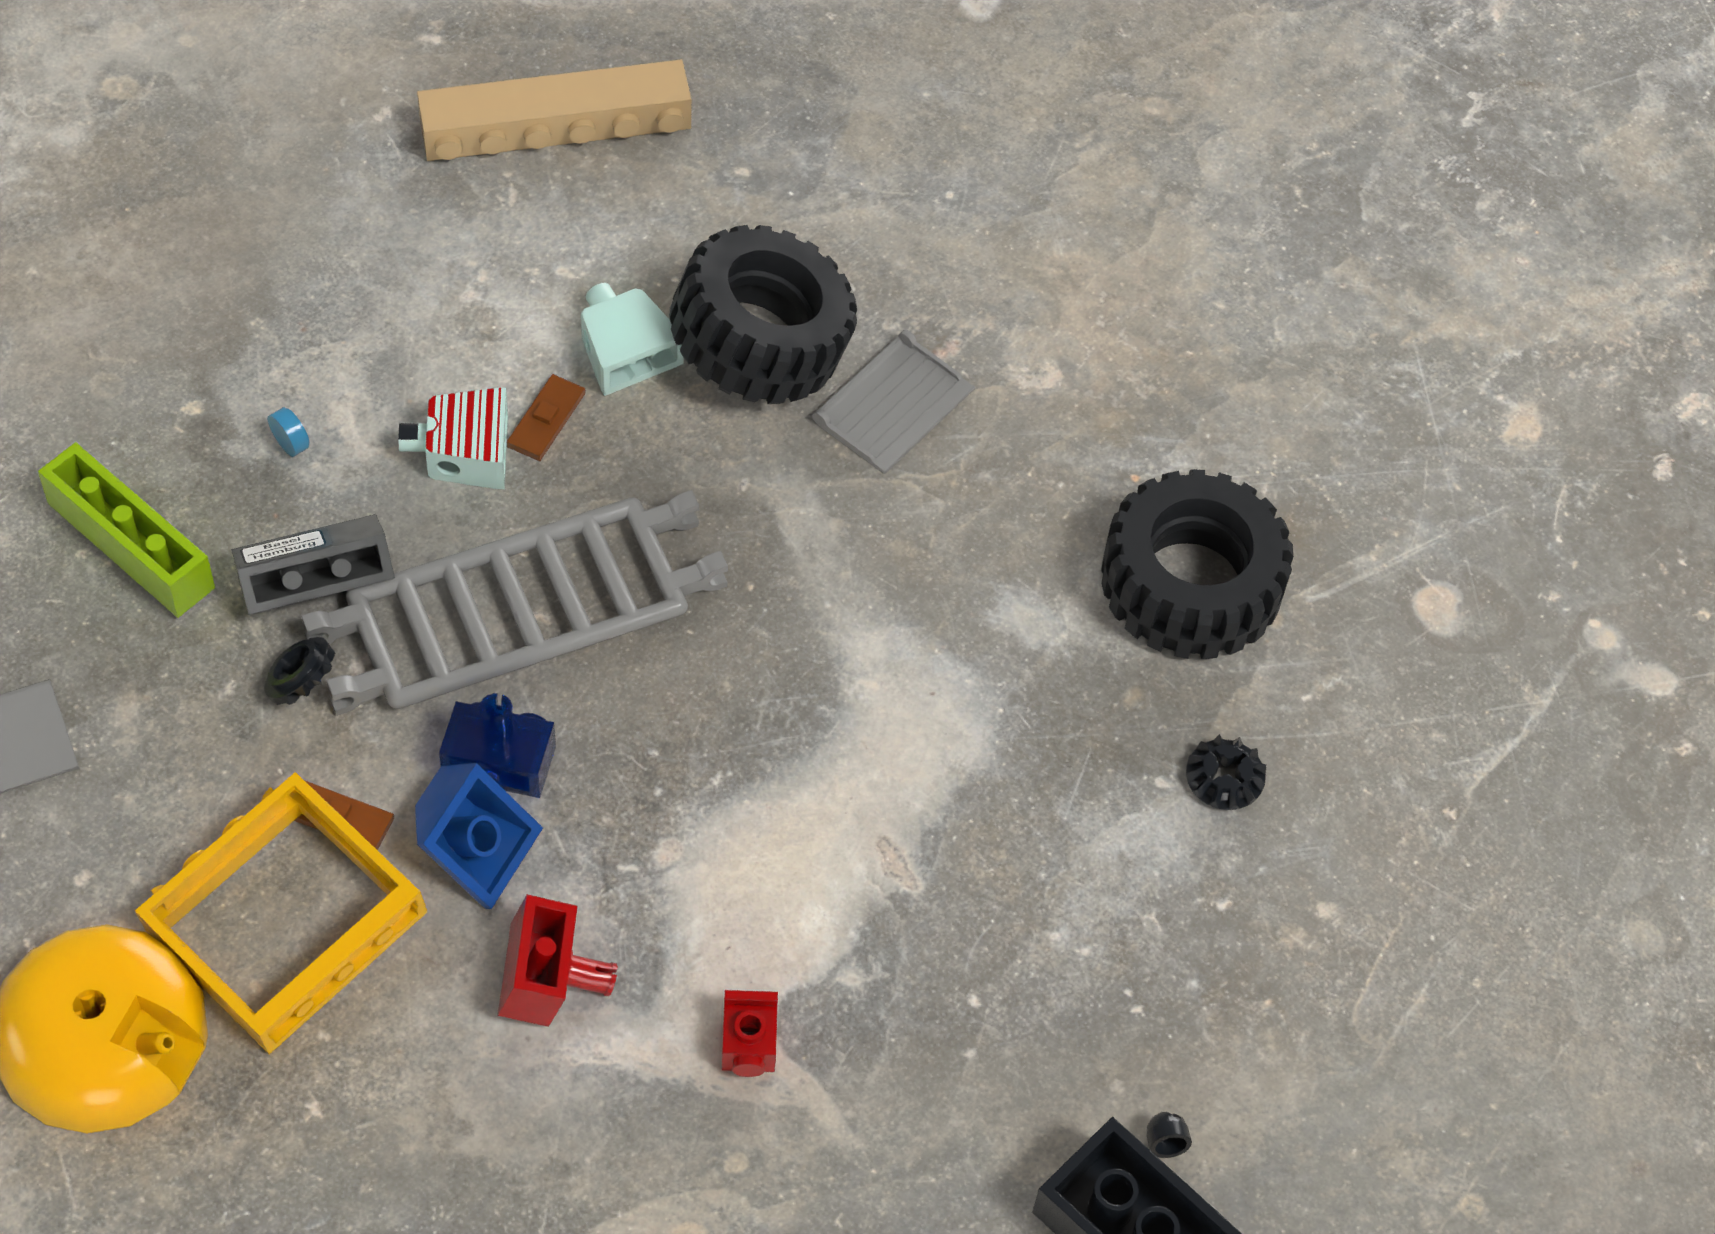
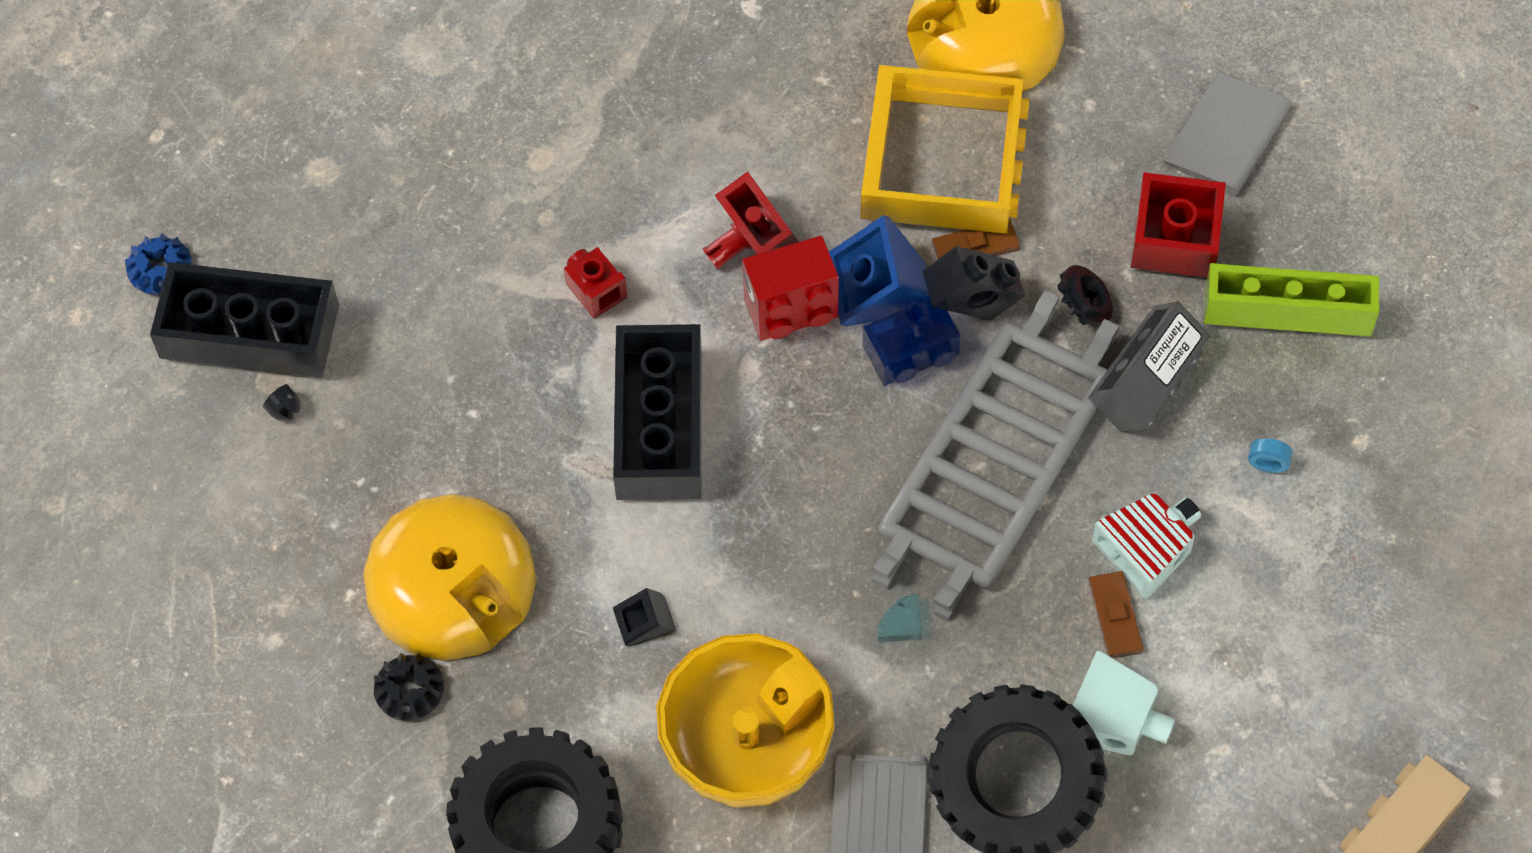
camera: 150 degrees right, 5 degrees up
(147, 666) = (1178, 224): none -> red brick
(397, 734) = (973, 283): none -> black brick
(572, 857) = (791, 288): none -> red brick
(734, 532) = (901, 621): none -> clear light blue tile
(801, 839) = (658, 412): none -> black brick
(952, 512) = (745, 720): none -> yellow piece
(961, 687) = (643, 617): none -> black slope
(1117, 845) = (449, 577): none -> yellow piece

